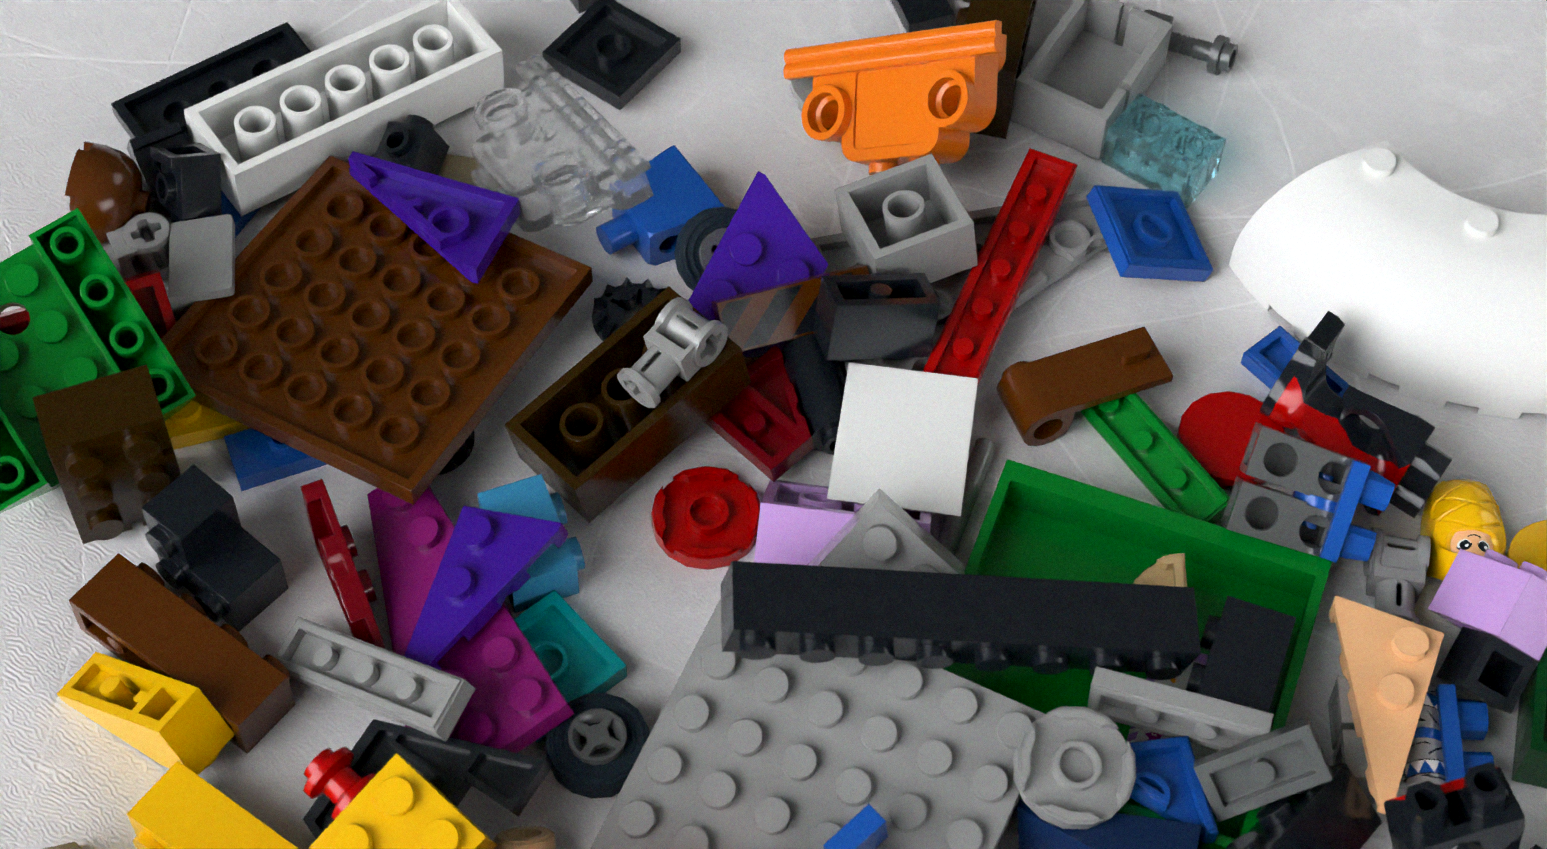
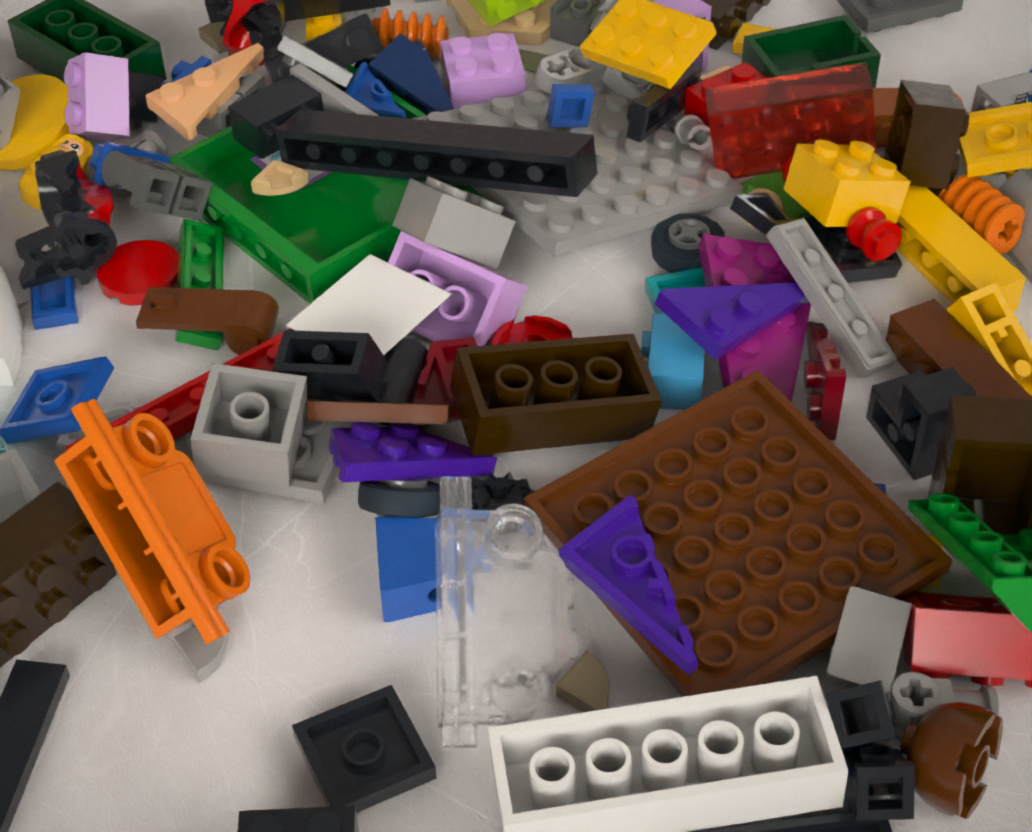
camera: 150 degrees left, 10 degrees down
(413, 145) = (632, 681): black brick -> none
(675, 347) = (512, 348): light grey connector -> none
(1074, 768) = (419, 96): light grey tile -> none

